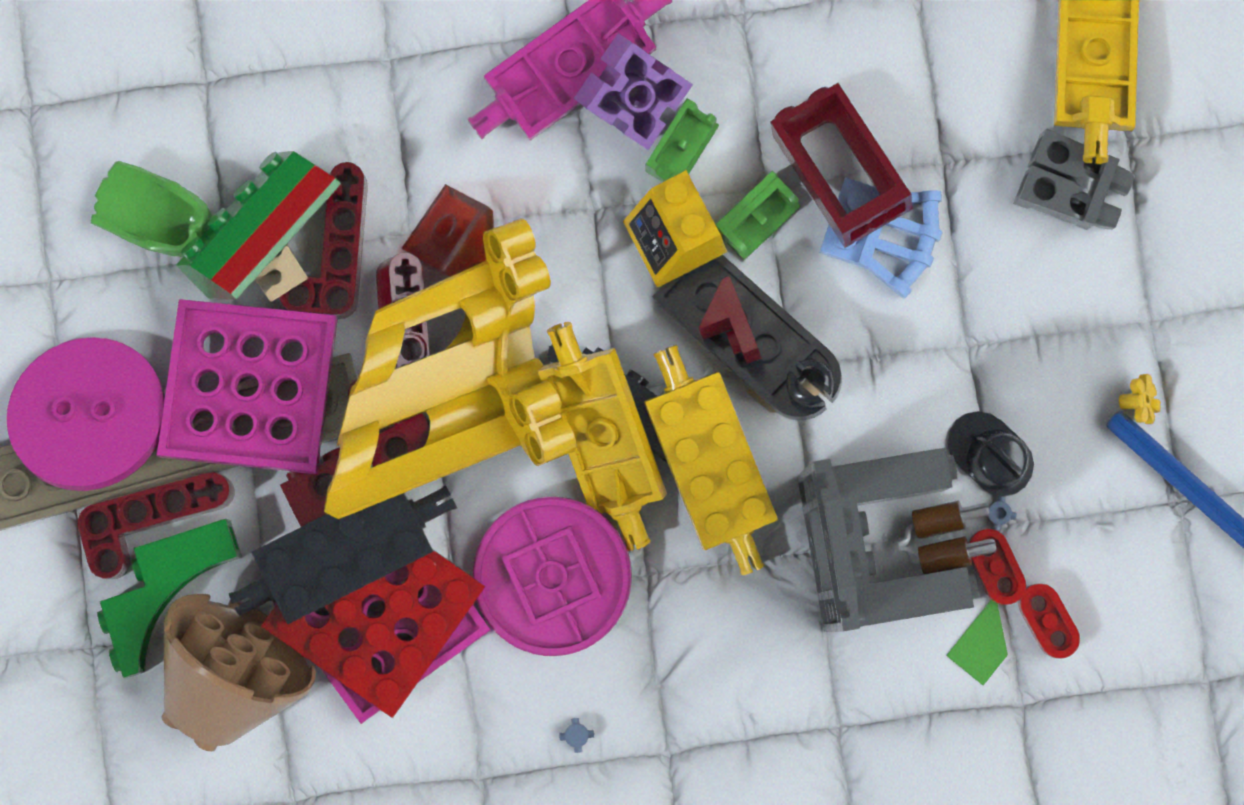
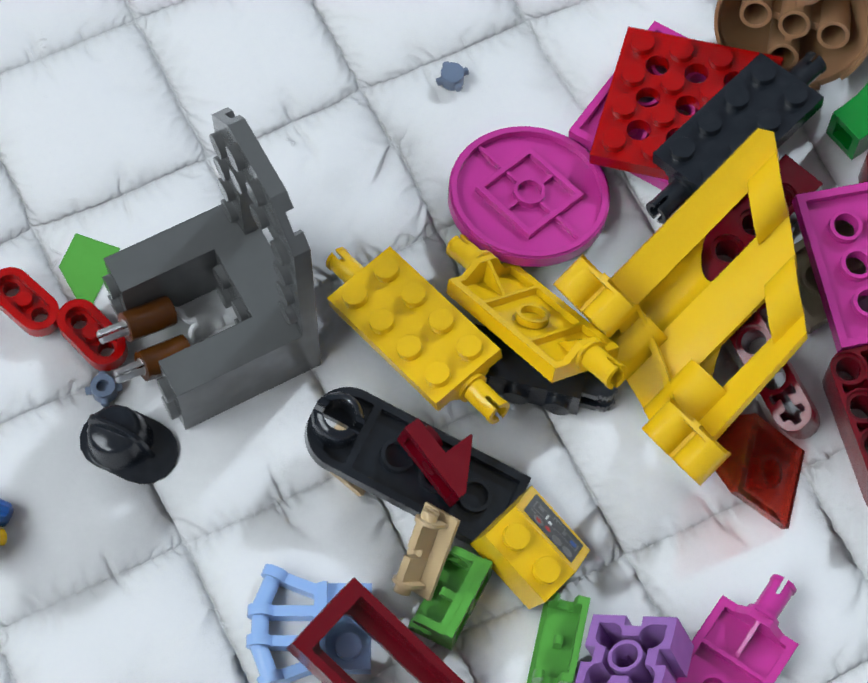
camera: 160 degrees right, 20 degrees down
(769, 253) = (426, 552): none -> tan hinge

